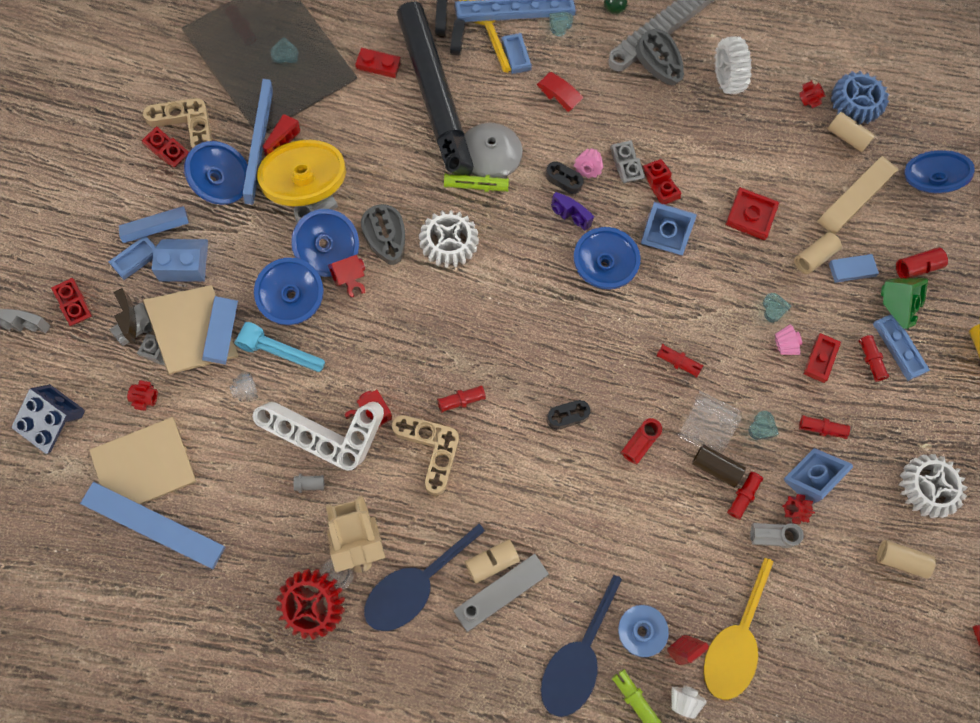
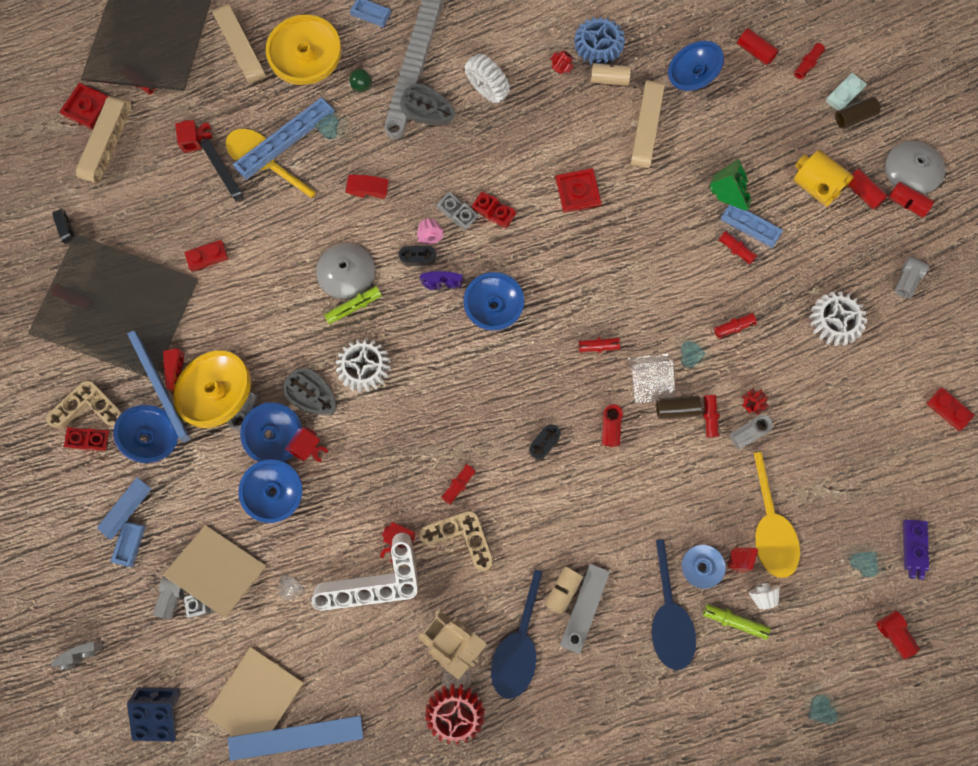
camera: 20 degrees left, 5 degrees up
(71, 302) = (105, 612): red slope -> none
(127, 318) = (163, 599): dark brown slope -> none
(142, 395) = (216, 647): red gear -> none
(180, 260) = (166, 521): medium blue slope -> none
(220, 330) = (238, 556): medium blue tile -> none
(252, 338) = (268, 546): medium azure axle -> none
(284, 51) = (125, 297): clear light blue tile -> none
(308, 483) = (389, 626): light grey pin -> none
(434, 88) = (267, 249): black piece -> none
(457, 37) = (255, 193): black beam -> none
(516, 53) = (310, 175): medium blue tile -> none
(668, 228) = (524, 246): medium blue slope -> none
(775, 307) = (642, 255): clear light blue tile -> none
(788, 341) = (668, 276): bright pink piece -> none
(817, 475) = (752, 366): medium blue slope -> none
(818, 253) = (646, 191): tan pin -> none
(822, 358) = (700, 272): red plate -> none
(853, 268) = (680, 185): medium blue tile -> none
(906, 559) = (851, 386): tan pin -> none
(922, 263) = (727, 148): red pin -> none

